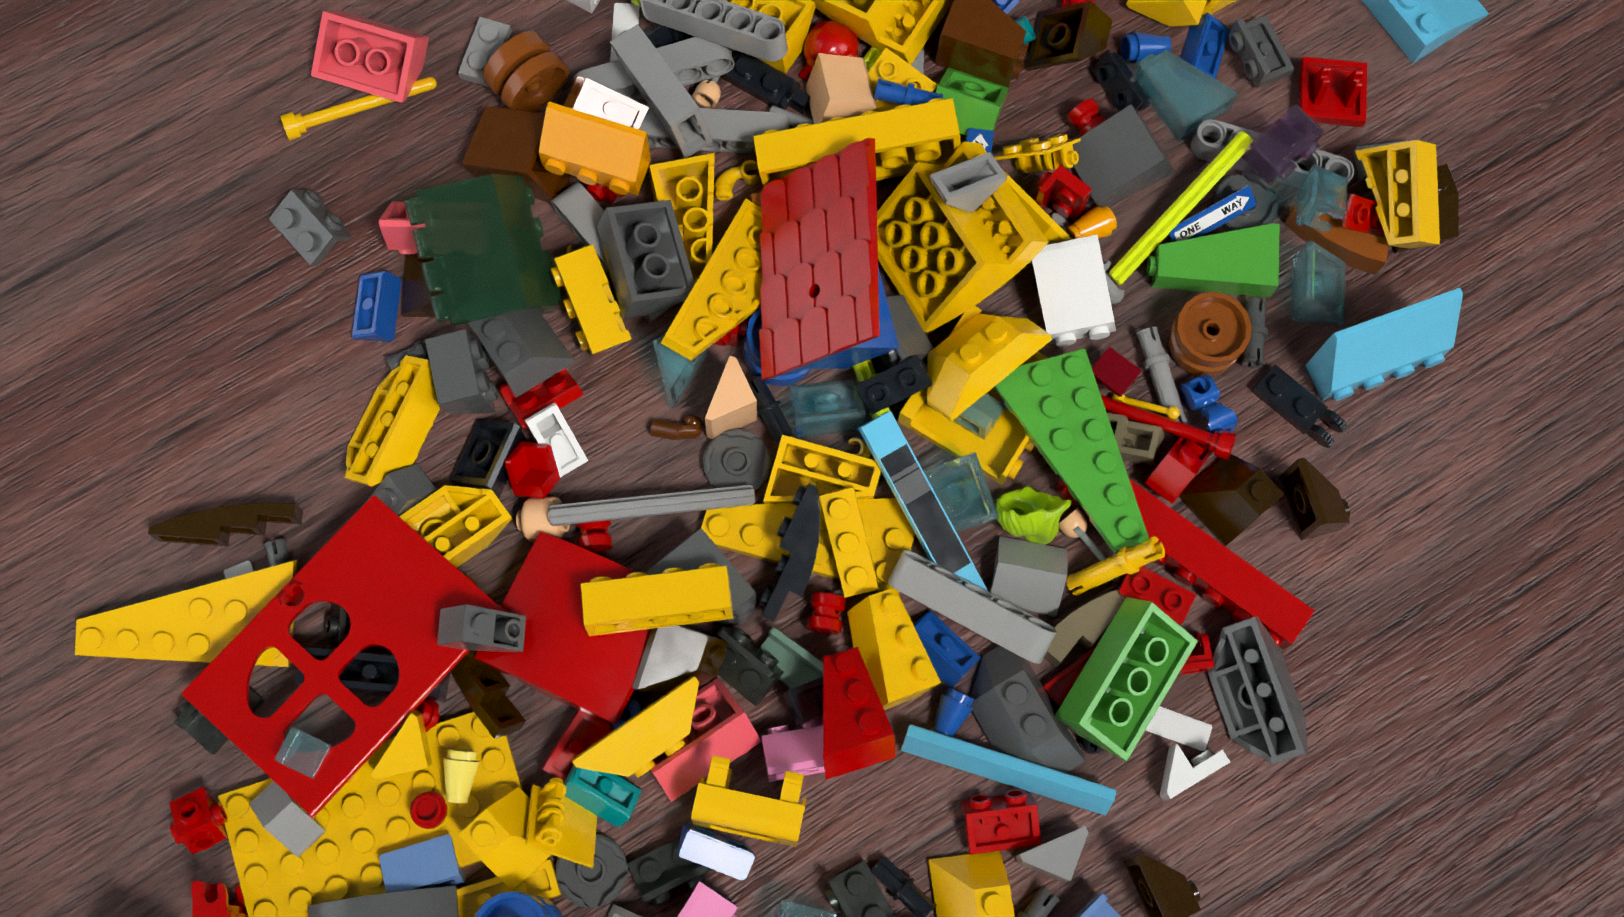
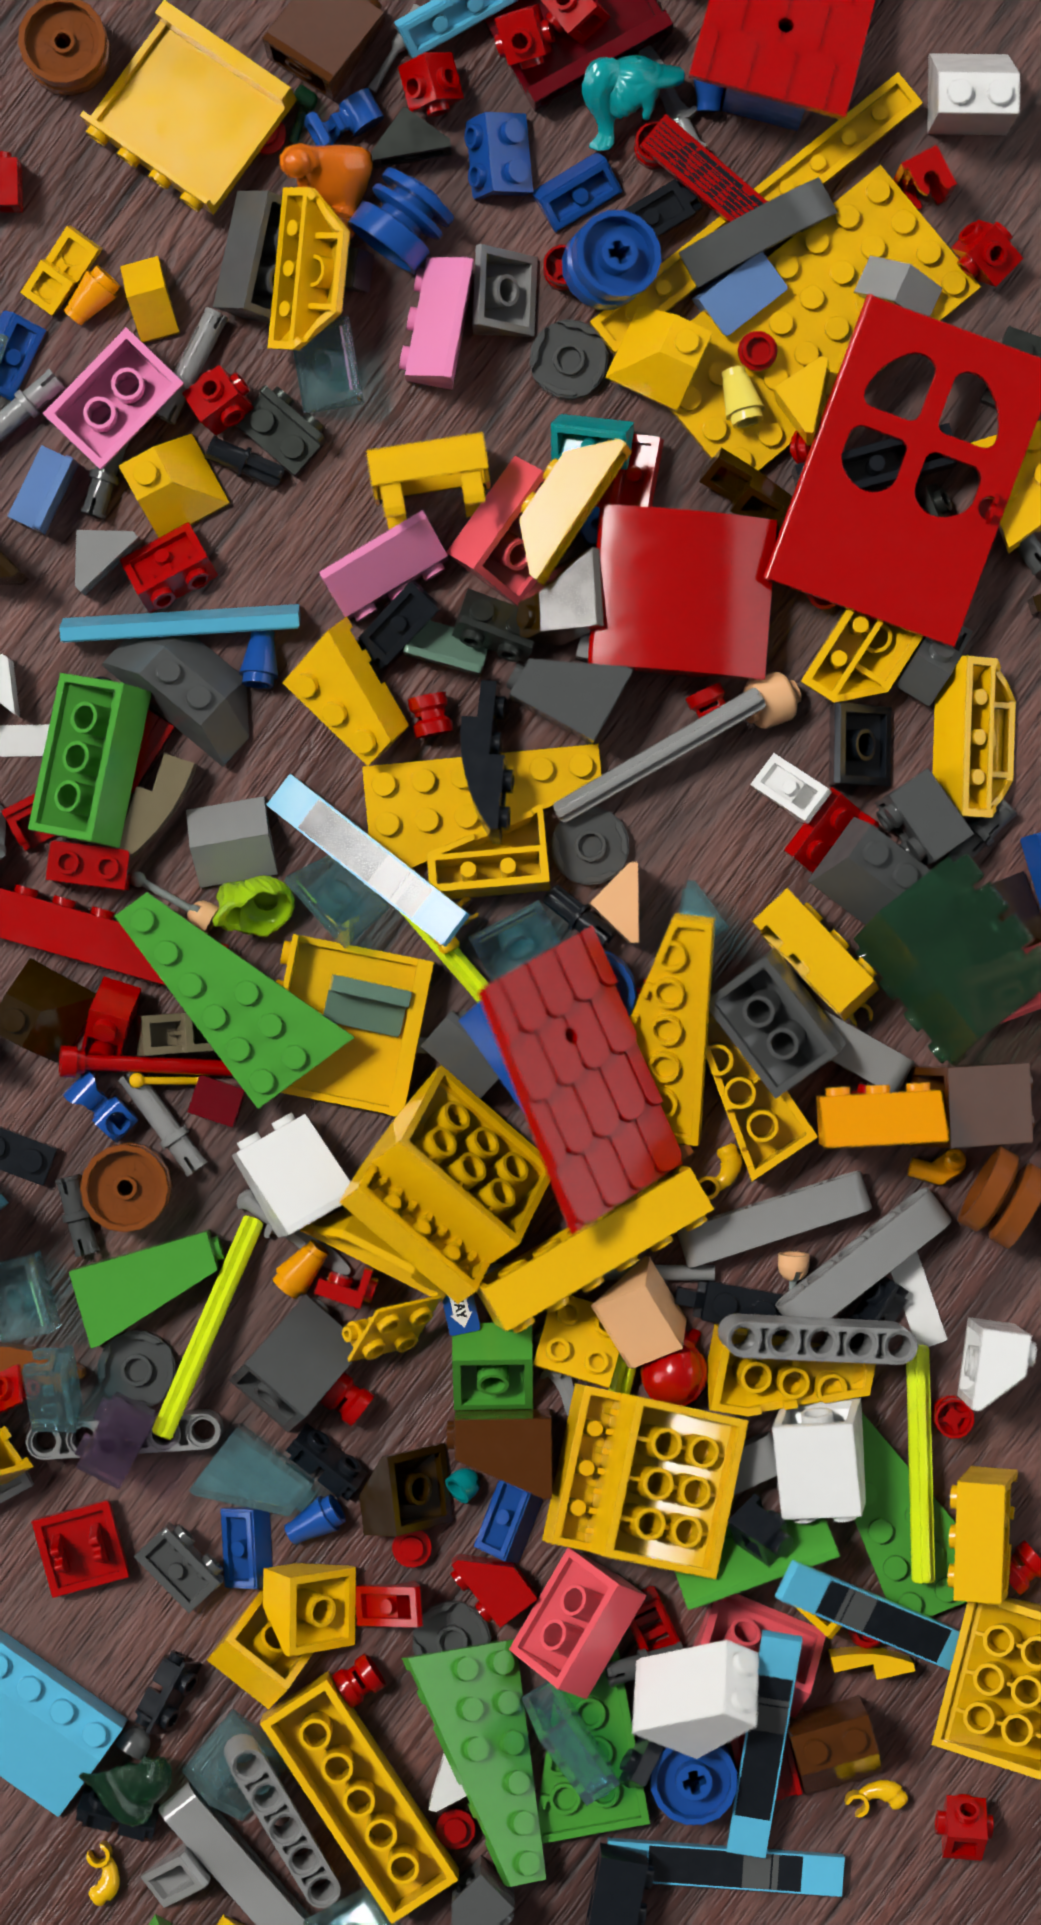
camera: 165 degrees right, 15 degrees up
(302, 752) = (904, 351): clear light blue slope -> none
(481, 629) = (776, 542): dark grey slope -> none
(532, 470) = (802, 745): red panel -> none
(560, 824) = (616, 386): yellow hinge -> none
(605, 103) = (892, 1177): panel -> none
(656, 600) = (605, 640): yellow brick -> none
(662, 91) = (840, 1228): light grey slope -> none
(665, 871) = (489, 391): pearl dark grey bracket -> none
(676, 431) = (668, 853): reddish brown arm -> none
(715, 851) = (448, 419): slope -> none
(849, 541) = (434, 795): yellow plate -> none
(853, 717) = (358, 598): red wedge -> none
(894, 384) = (449, 986): black hinge -> none
(902, 94) = (561, 1332): blue pin -> none
(946, 650) = (293, 728): blue slope -> none
(969, 182) = (451, 1235): light grey slope -> none
(972, 606) = (279, 774): light grey beam -> none
(978, 359) = (368, 1051): yellow wedge -> none
(1126, 561) = (132, 882): yellow pin -> none
(1214, 215) = (167, 1331): sticker -> none

